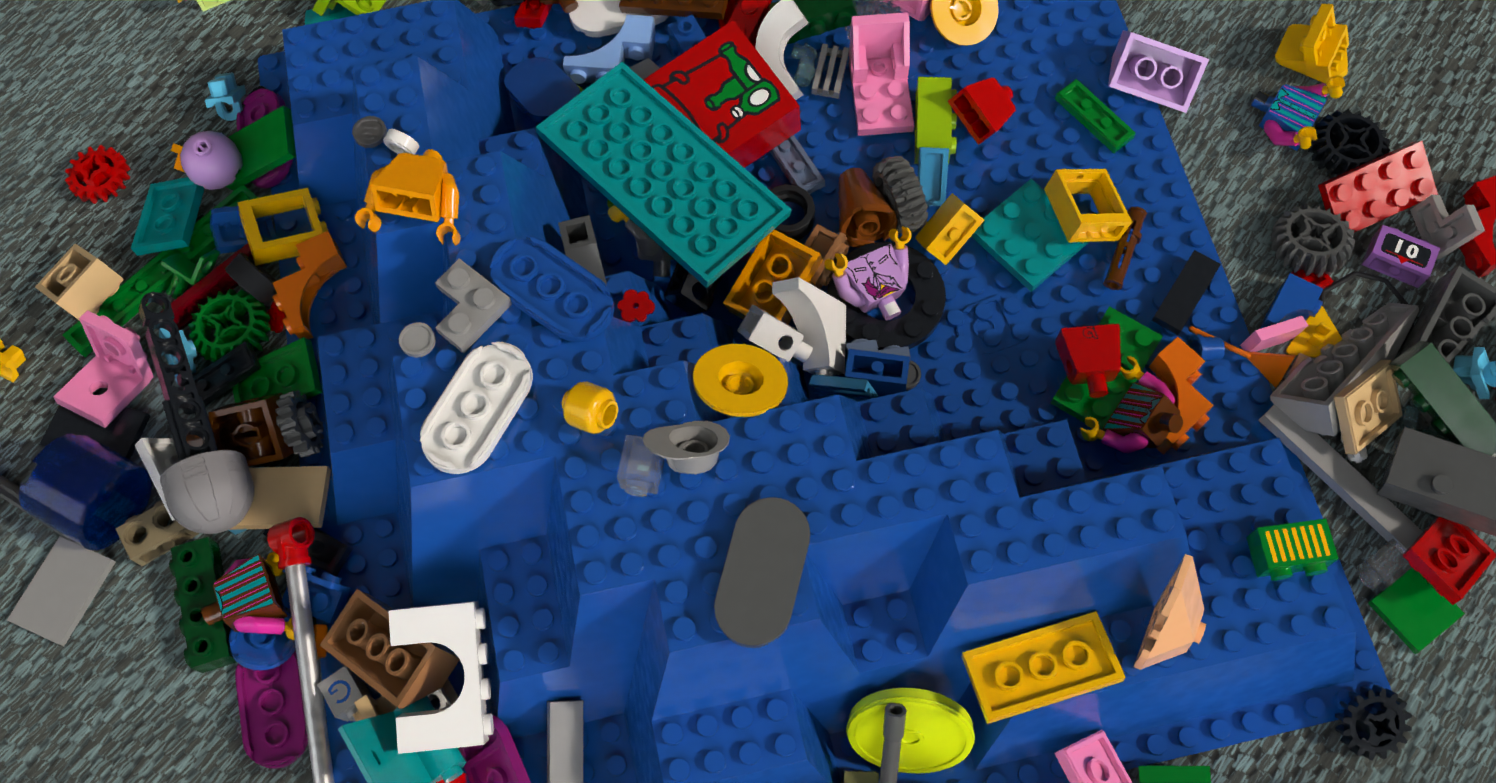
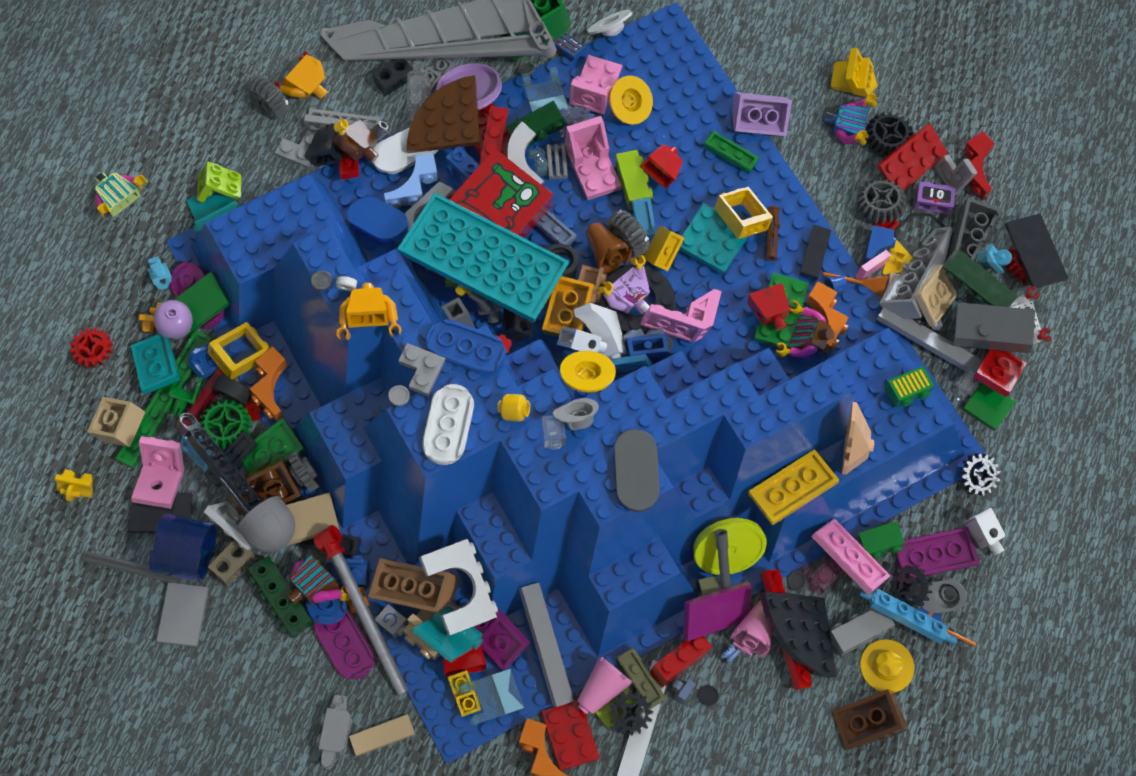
camera: 25 degrees left, 0 degrees up
(955, 355) = (688, 326): none -> bright pink bracket

